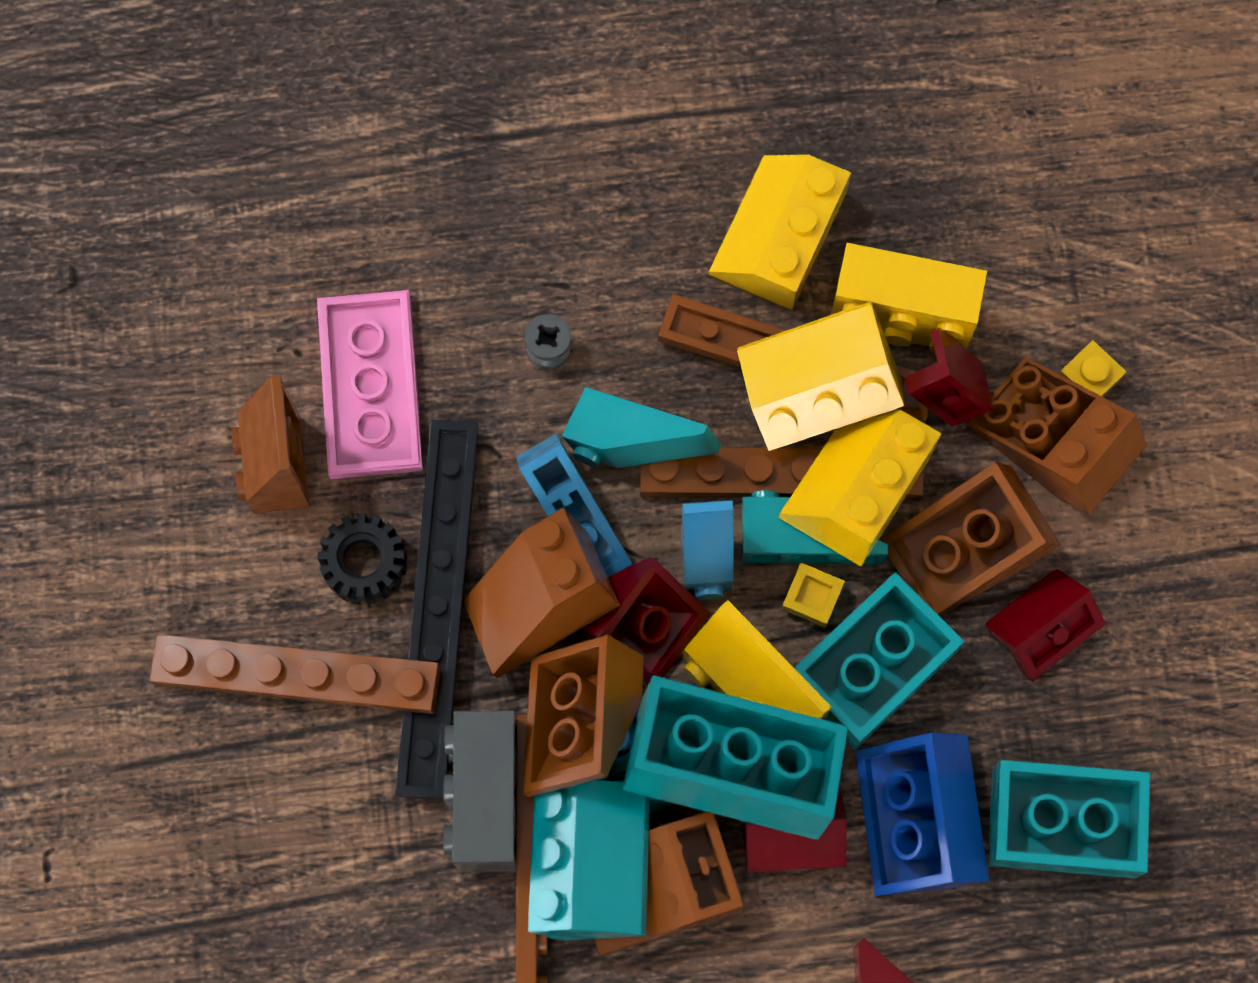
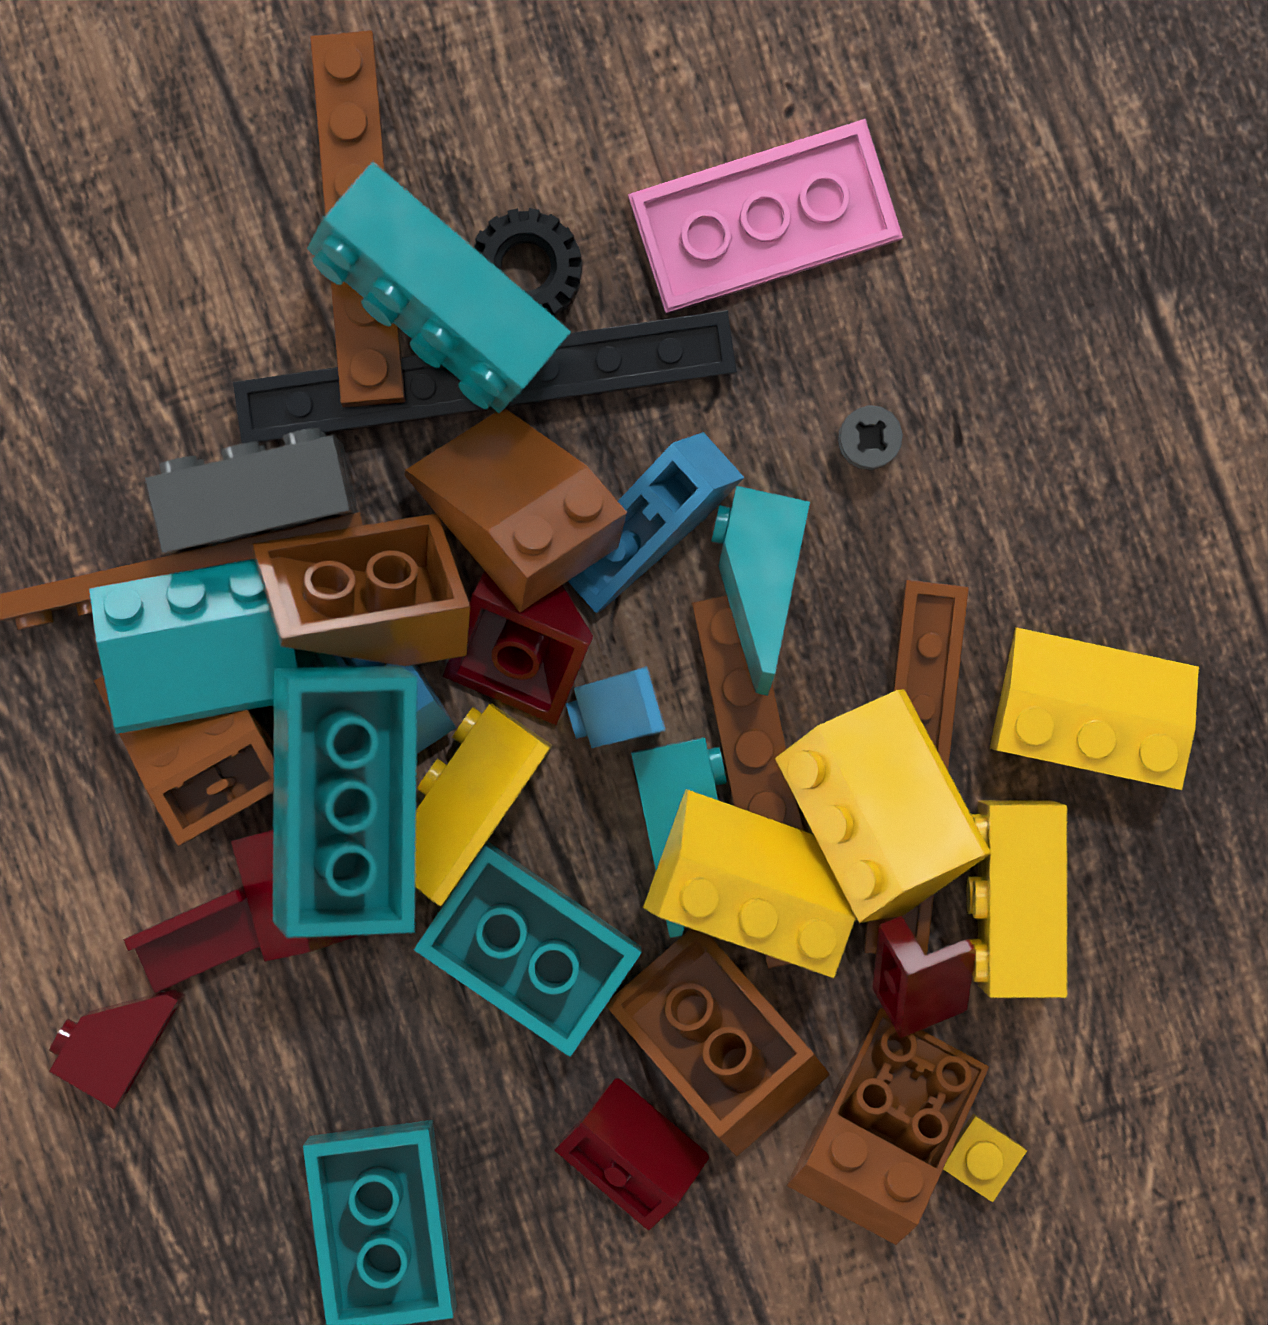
camera: 75 degrees right, 15 degrees up
(271, 451) = (633, 115): dark orange slope -> none
(363, 610) = (435, 289): none -> teal brick
(813, 595) = (604, 852): yellow plate -> none
(817, 918) = (195, 940): none -> dark red panel
(921, 814) = (350, 1043): blue slope -> none

